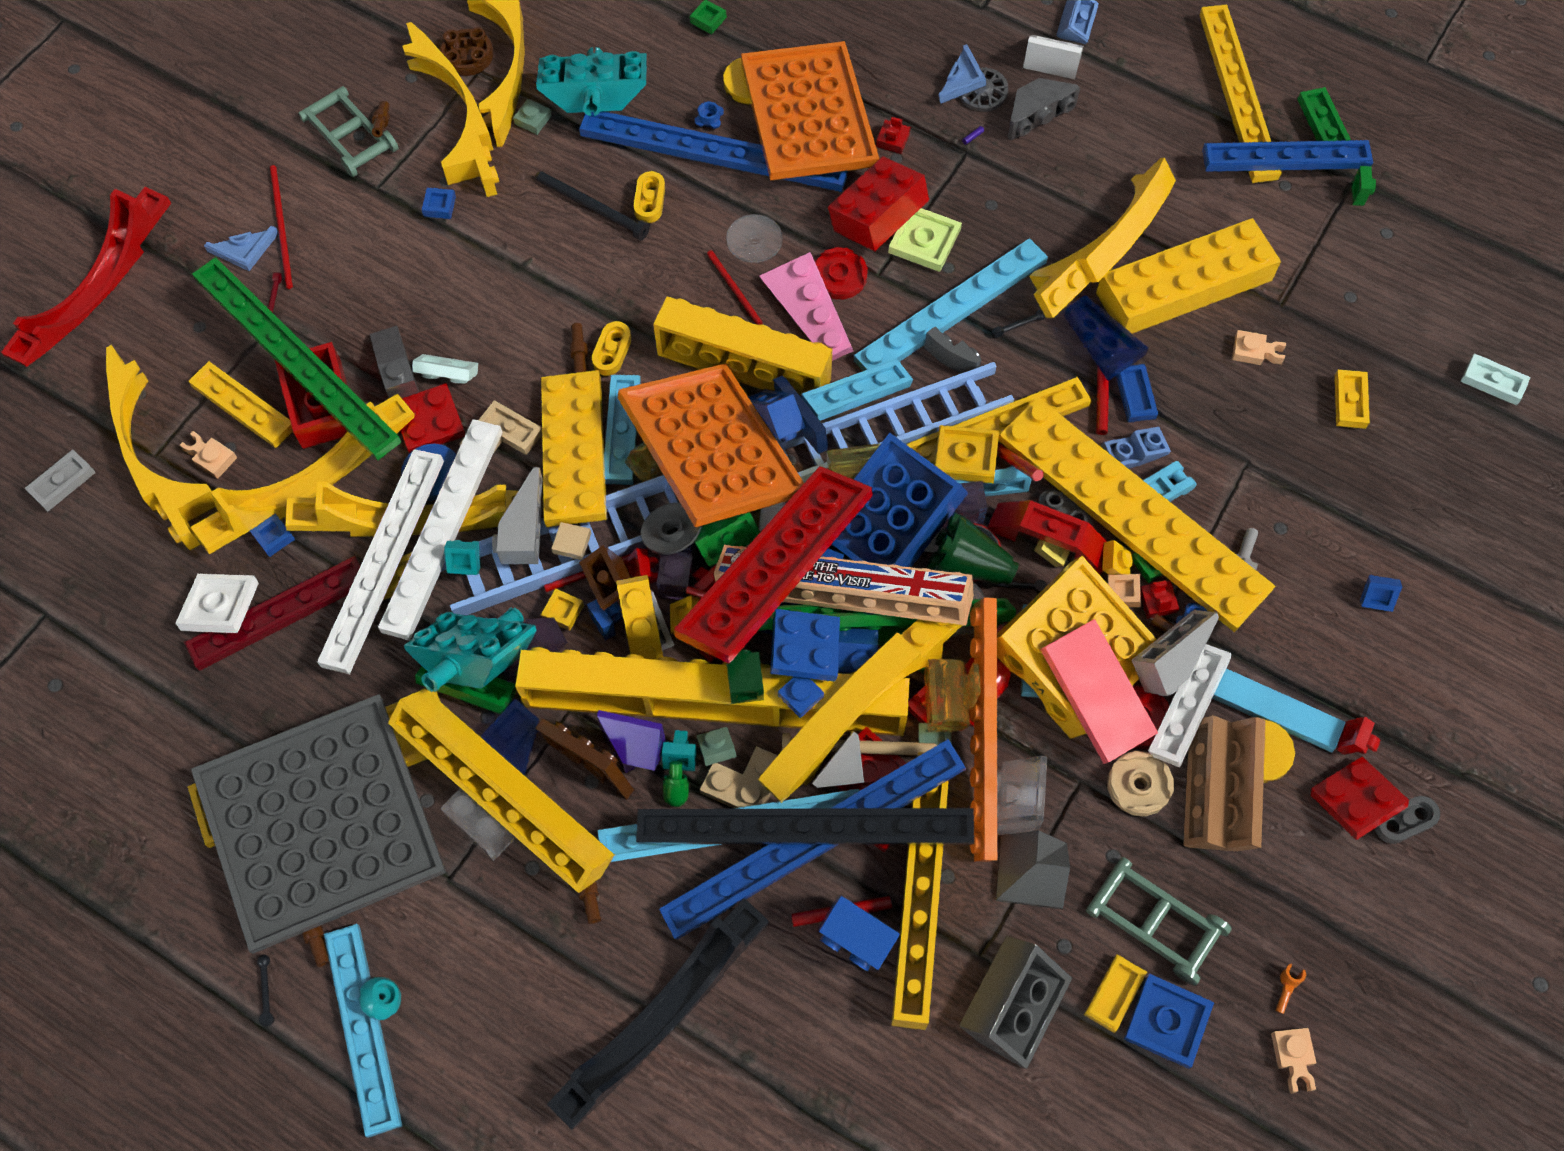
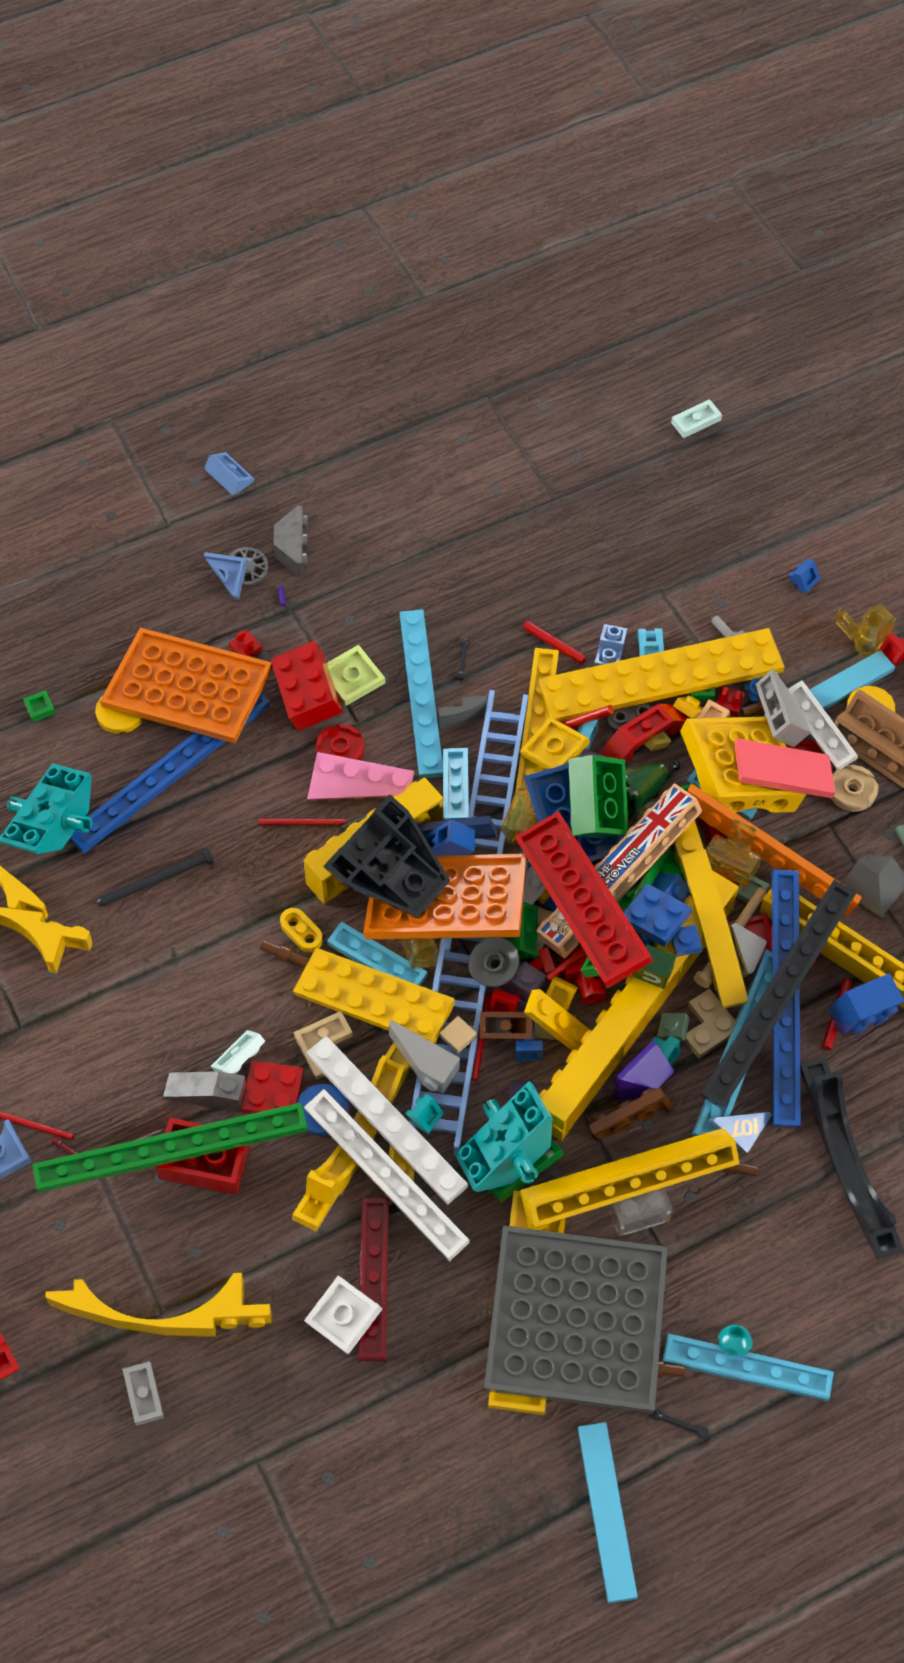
camera: 60 degrees left, 5 degrees down
(129, 966) = (607, 1513): none -> medium azure tile
(210, 457) = (197, 1266): light nougat plate -> none
(242, 404) = (166, 1220): yellow plate -> none
(245, 509) = (272, 1211): yellow slope -> none
(272, 535) = (304, 1250): blue plate -> none
(438, 203) = (75, 986): blue plate -> none
(513, 735) = (582, 1153): clear blue wing -> none
(532, 116) = (38, 878): sand green plate -> none
(563, 608) = (501, 1072): yellow plate -> none
(634, 878) = (742, 1128): none -> tile
(649, 199) = (182, 836): yellow plate -> none
(675, 785) = (687, 1068): green cylinder -> none
(701, 364) = (390, 861): none -> black wedge
(709, 115) = (129, 751): blue plate -> none
(751, 230) = (271, 775): clear dish -> none
(905, 511) = (598, 797): none -> green brick
(1021, 795) = (829, 852): clear slope -> none
(1052, 56) = (253, 505): white slope -> none
(1068, 277) = (457, 604): yellow slope -> none
(1104, 337) = (516, 613): clear blue wing -> none
(1137, 394) = (567, 622): blue tile -> none
(1188, 276) = (501, 538): yellow brick -> none
(1236, 82) = (371, 416): yellow plate -> none
(1253, 349) = (580, 535): light nougat plate -> none
(1286, 155) = (448, 422): blue tile -> none
(1322, 115) = (435, 384): green plate -> none
(1352, 399) = (657, 504): yellow plate -> none
(1357, 692) = (871, 631): none -> clear yellow piece
(1363, 185) = (501, 395): green plate -> none

